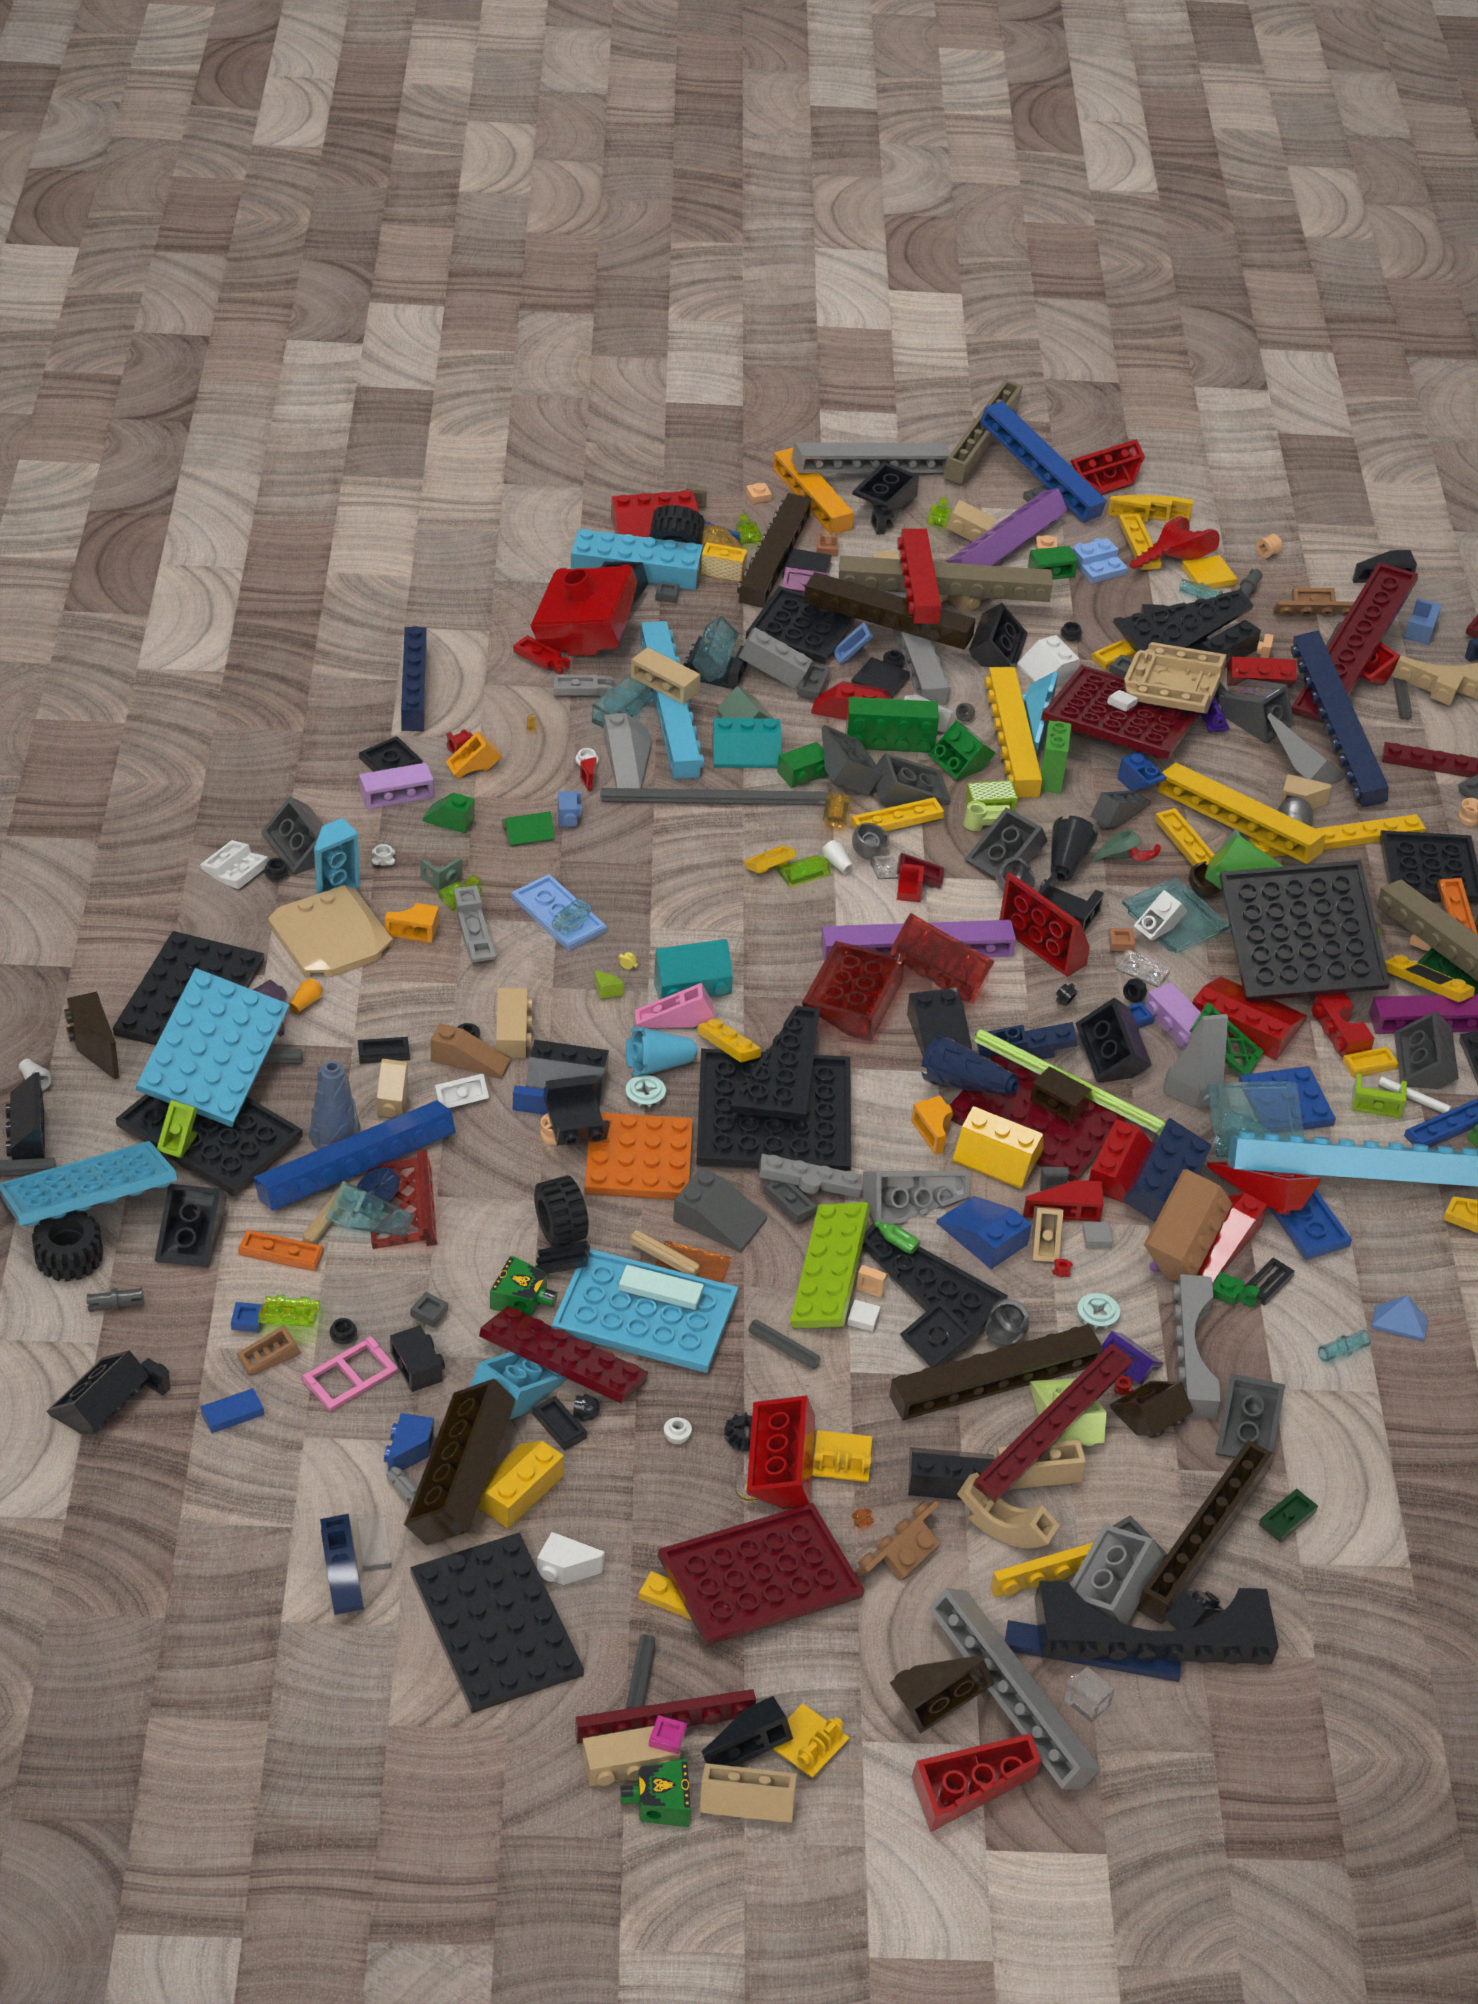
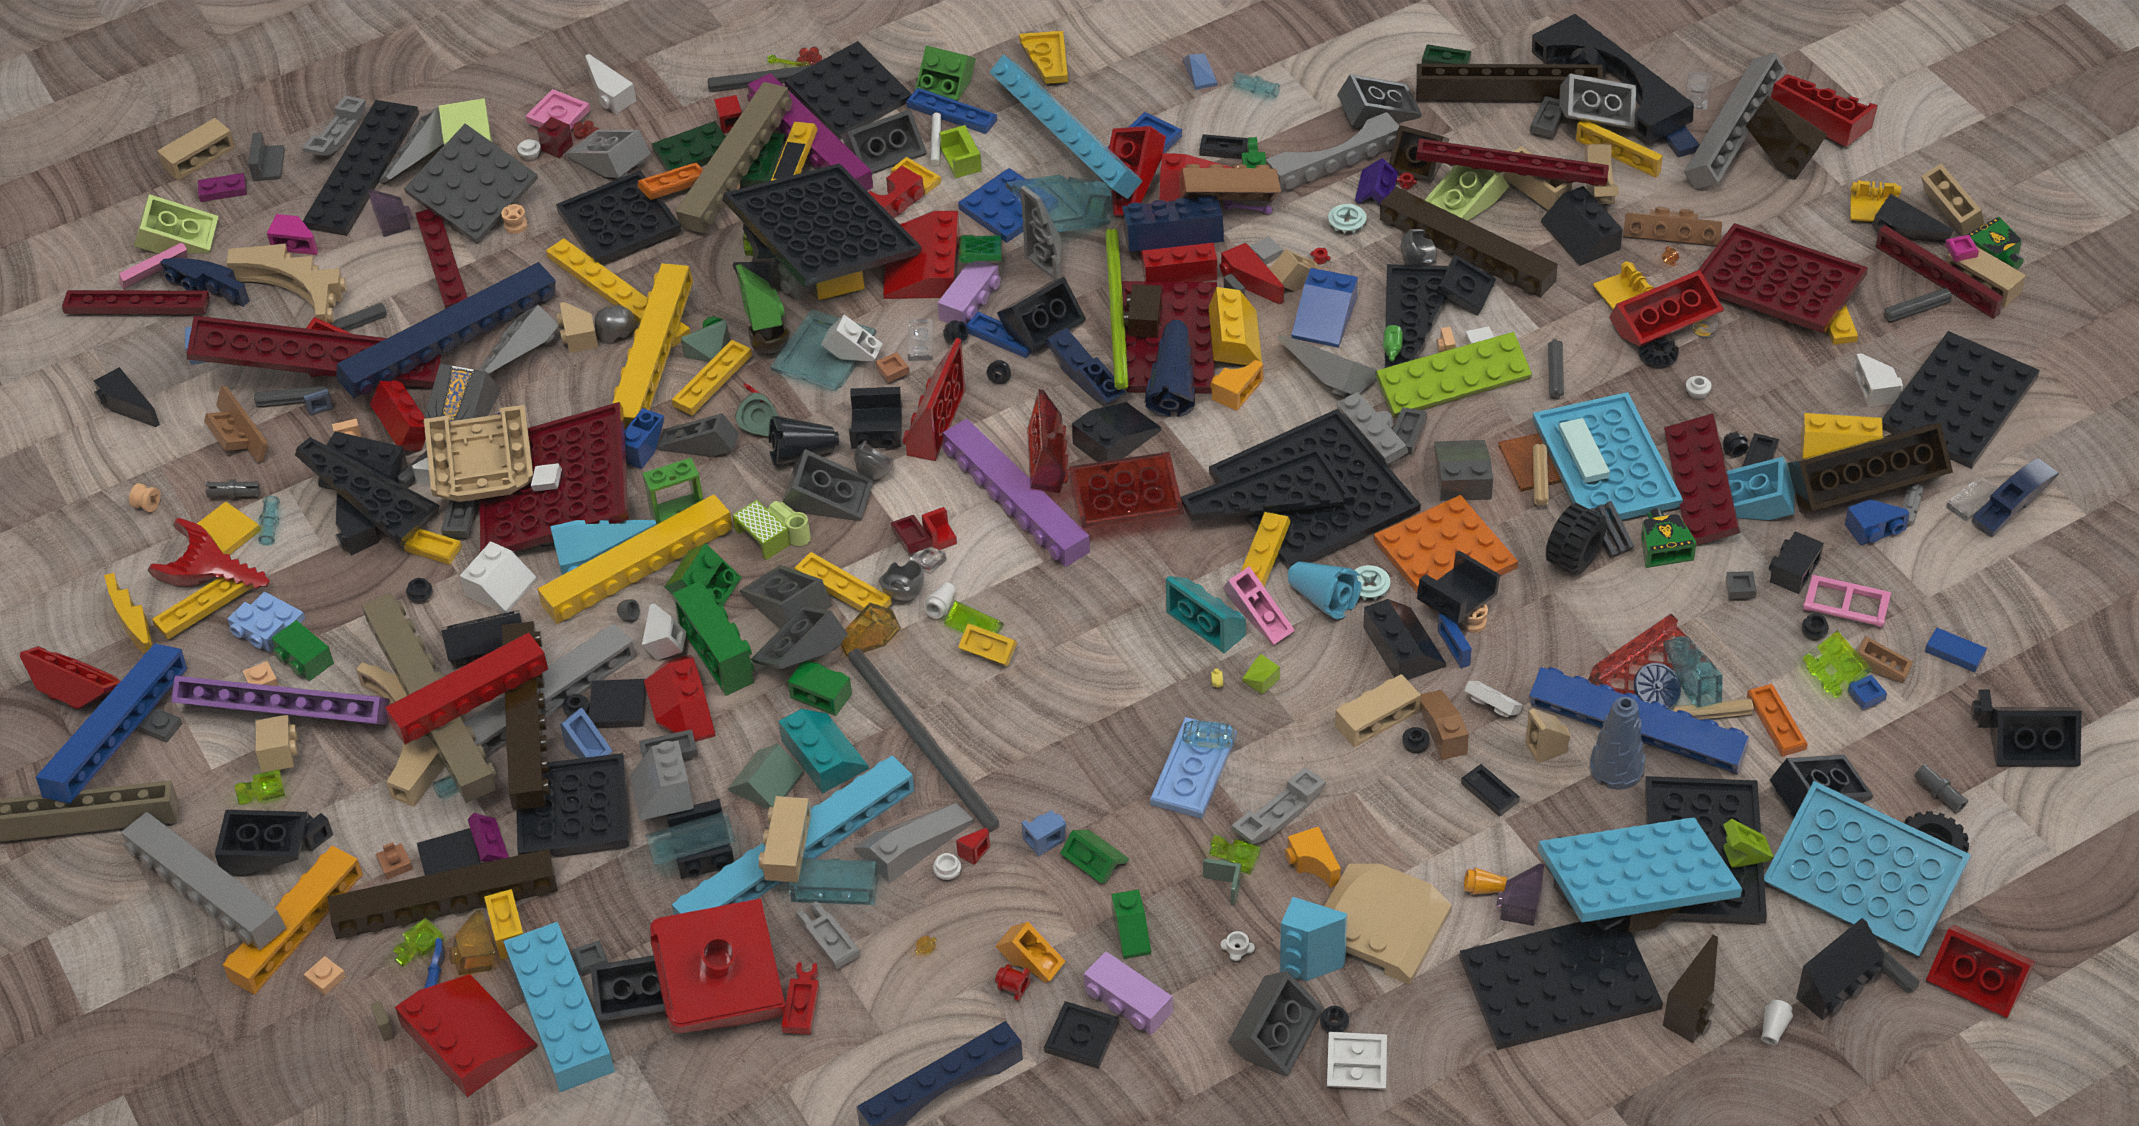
camera: 115 degrees left, 5 degrees up
(677, 524) = (495, 972): black tyre -> none

